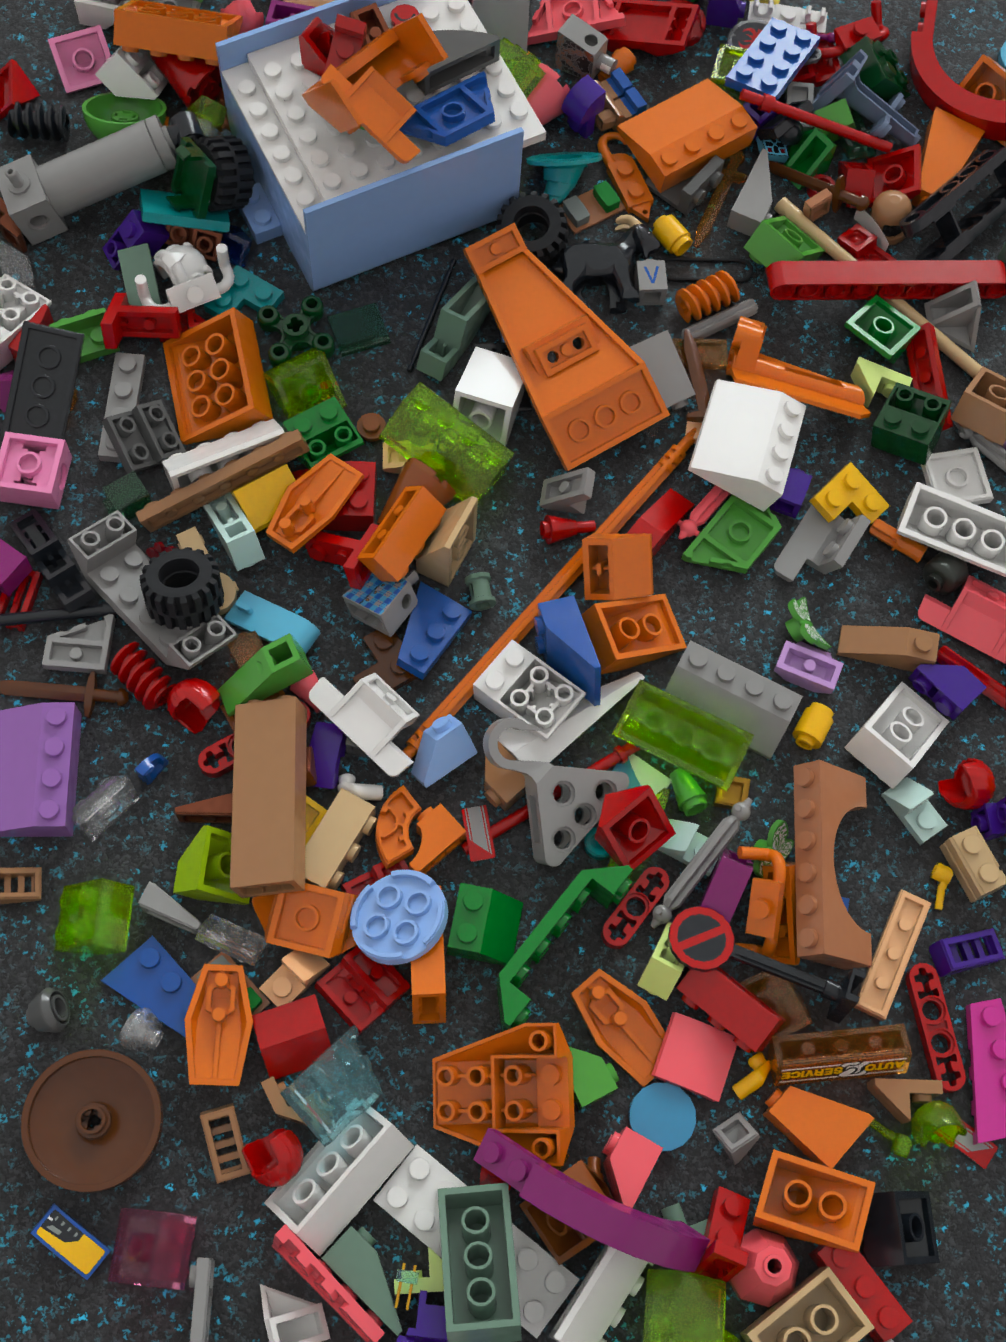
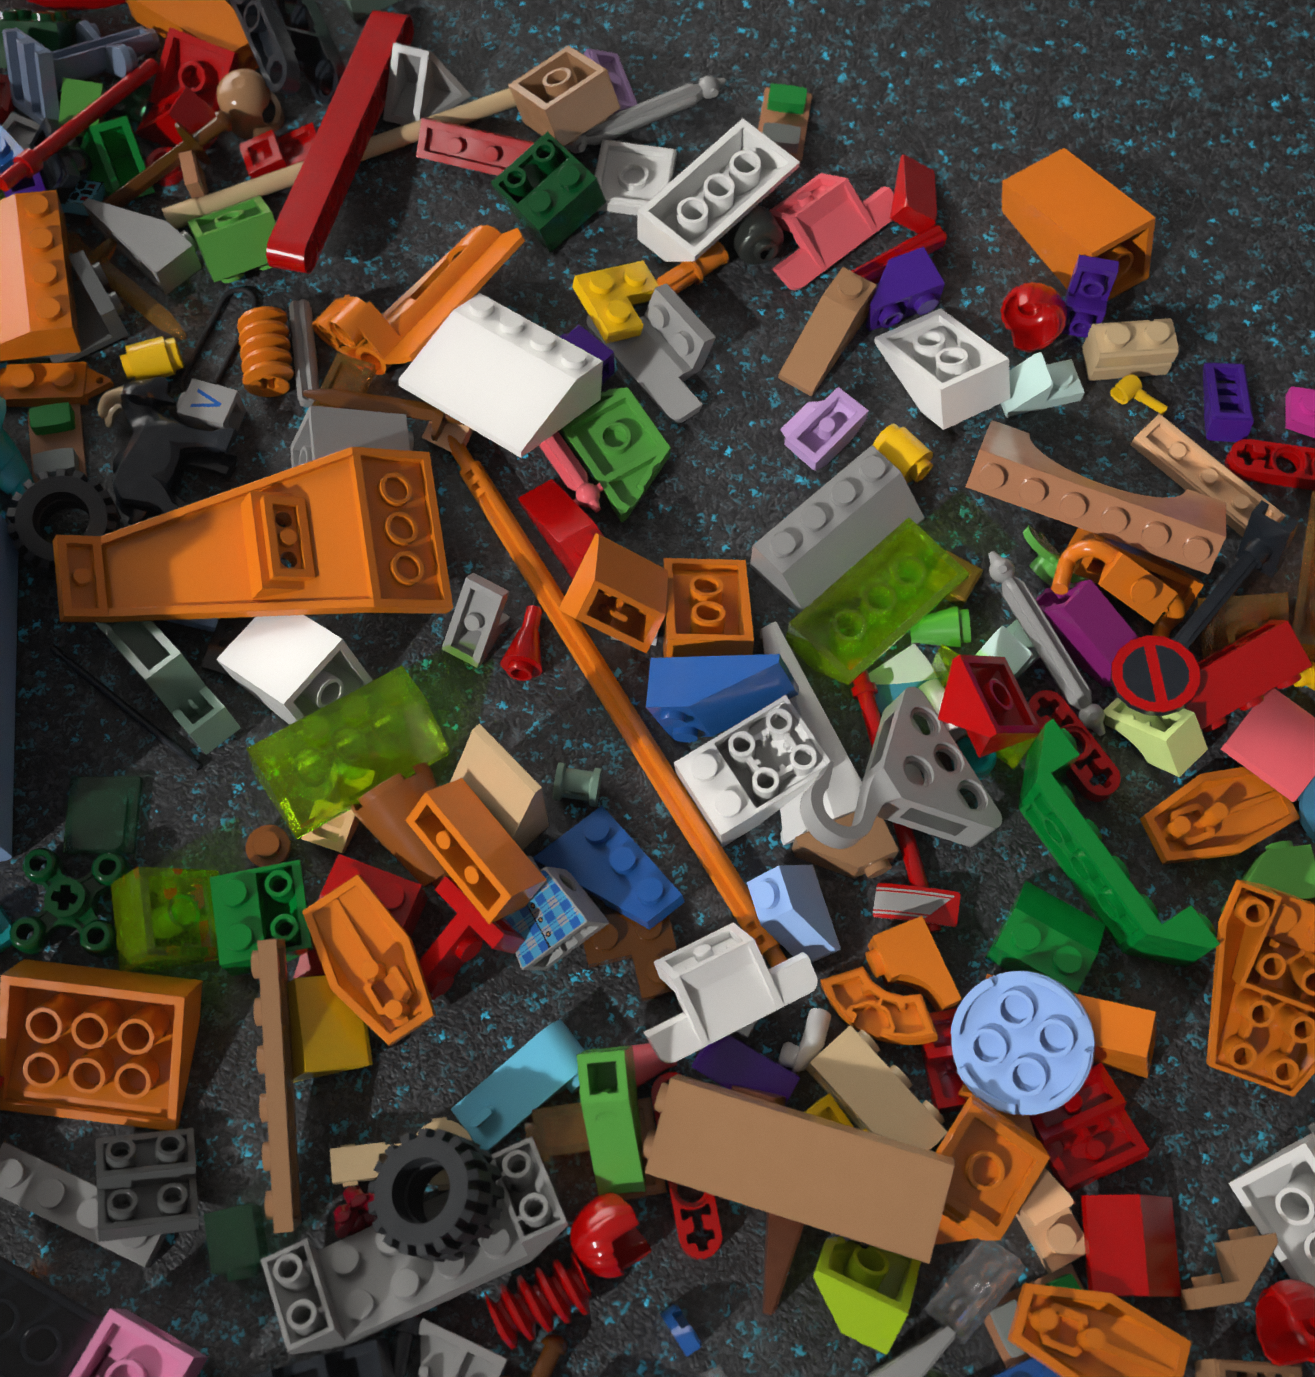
camera: 65 degrees left, 0 degrees up
(209, 457) = (232, 1081): white slope -> none
(234, 531) = (358, 1093): light aqua slope -> none
(334, 1088) = (1227, 1207): clear light blue slope -> none
(800, 625) = (768, 417): bright green animal -> none
(868, 223) = (248, 130): white sticker -> none
(876, 378) = (470, 206): yellowish green slope -> none
(883, 328) = (406, 171): green slope -> none

